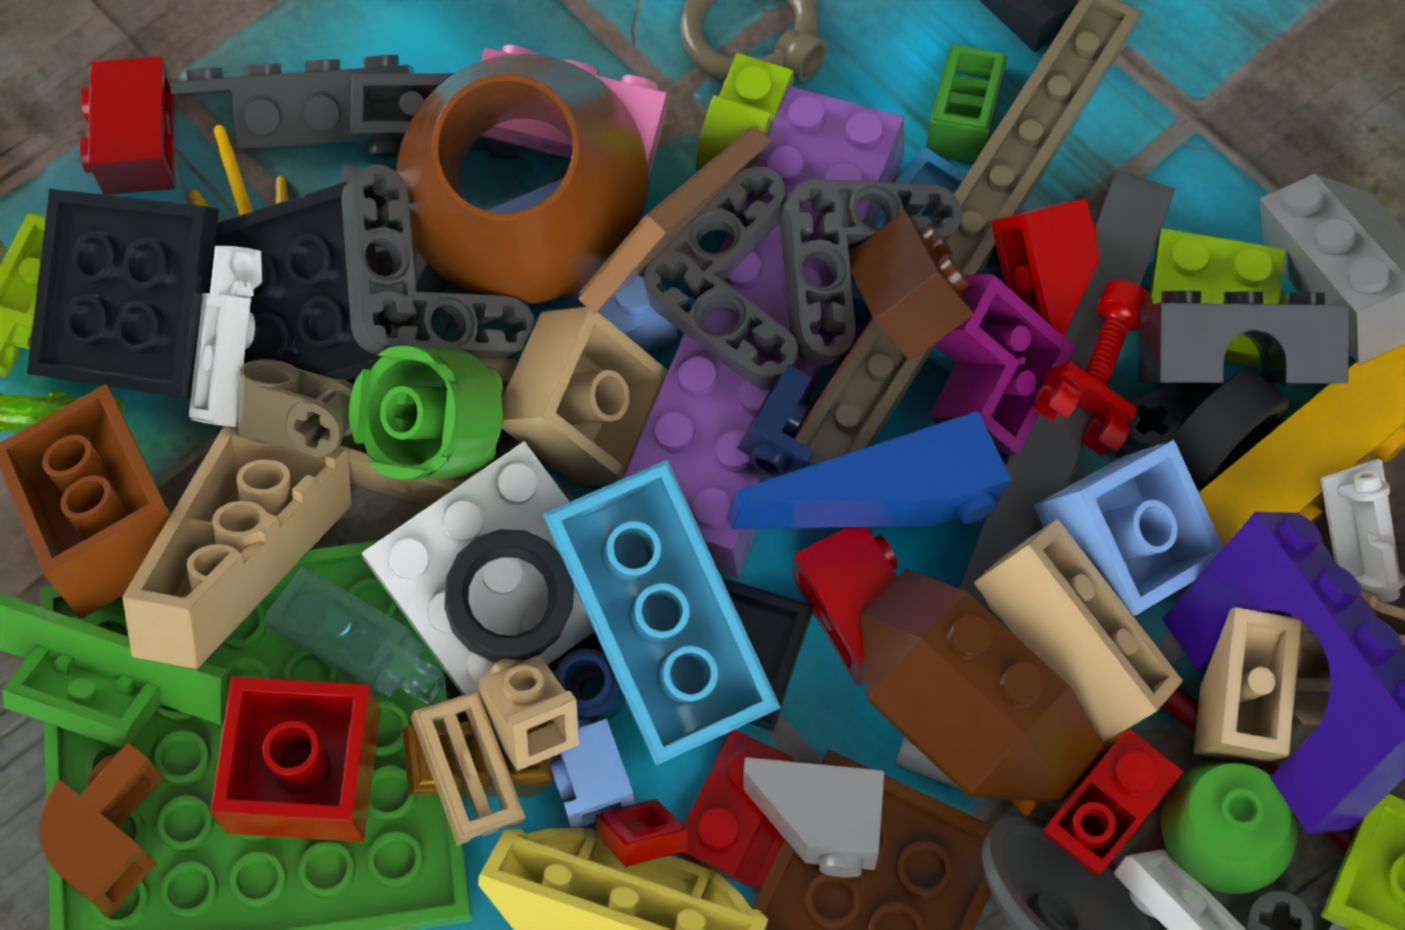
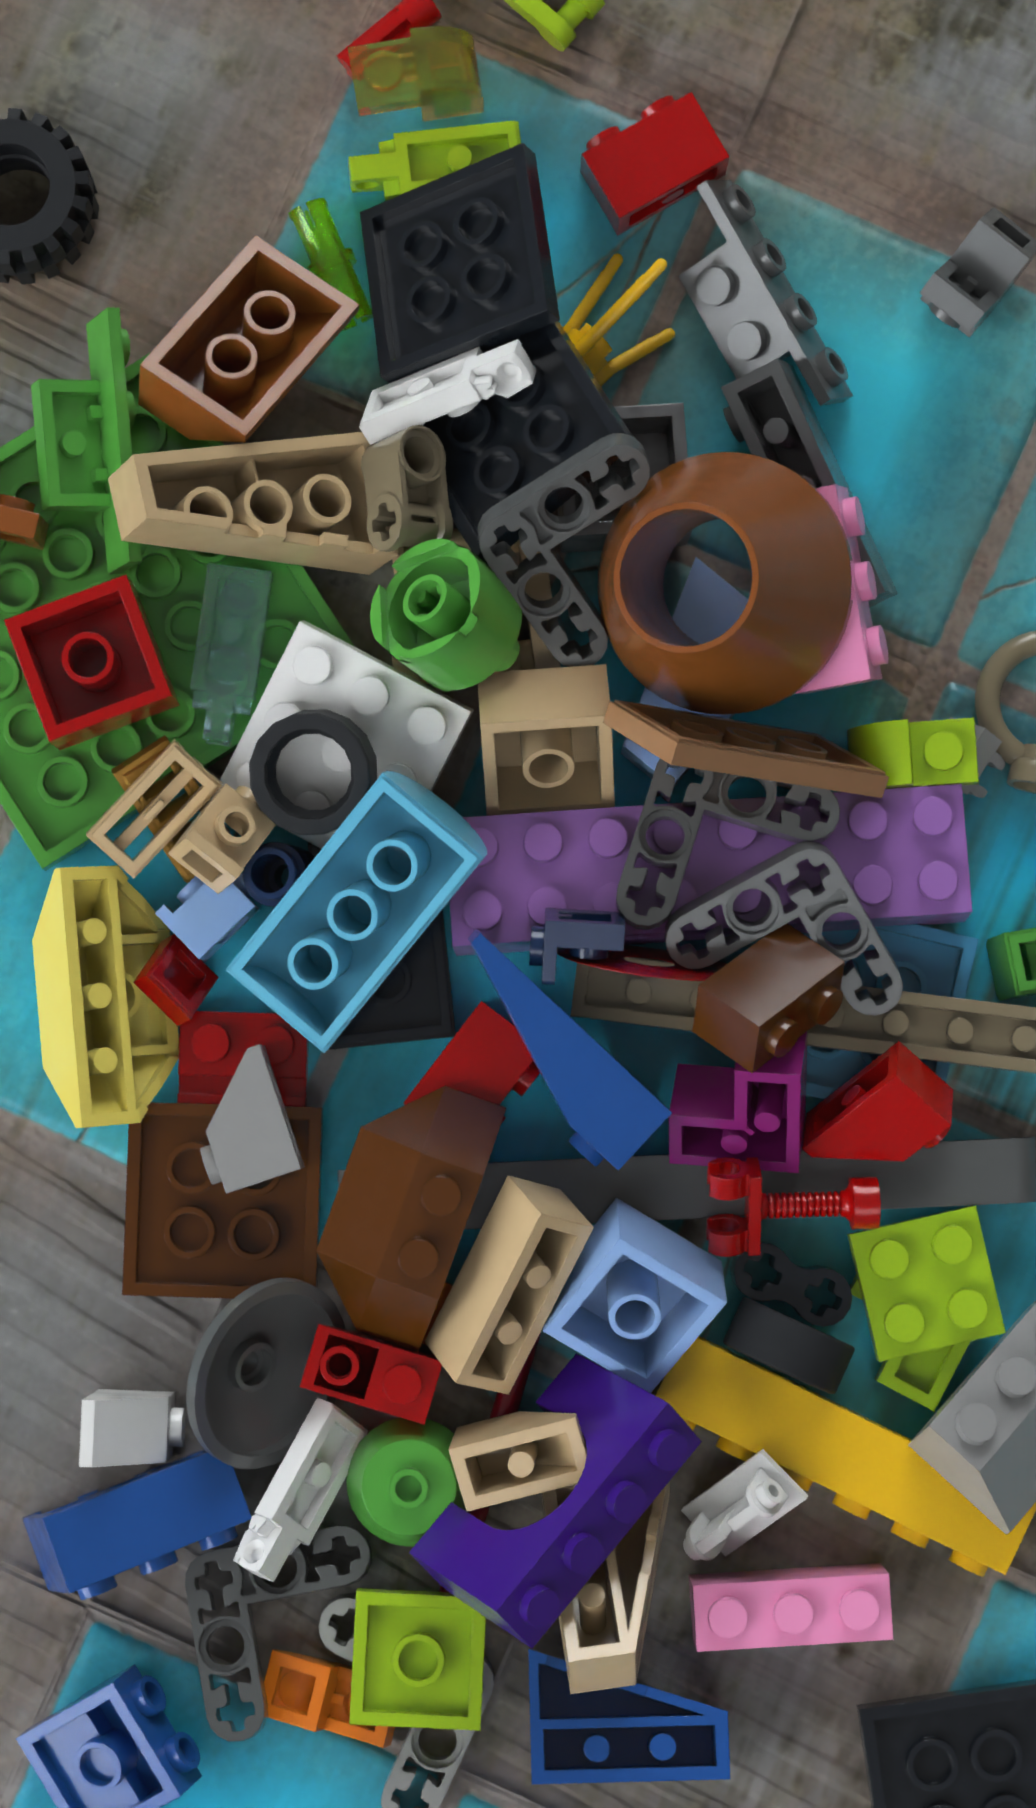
camera: 65 degrees right, 20 degrees up
(1295, 339) = (849, 1279): black arch -> none

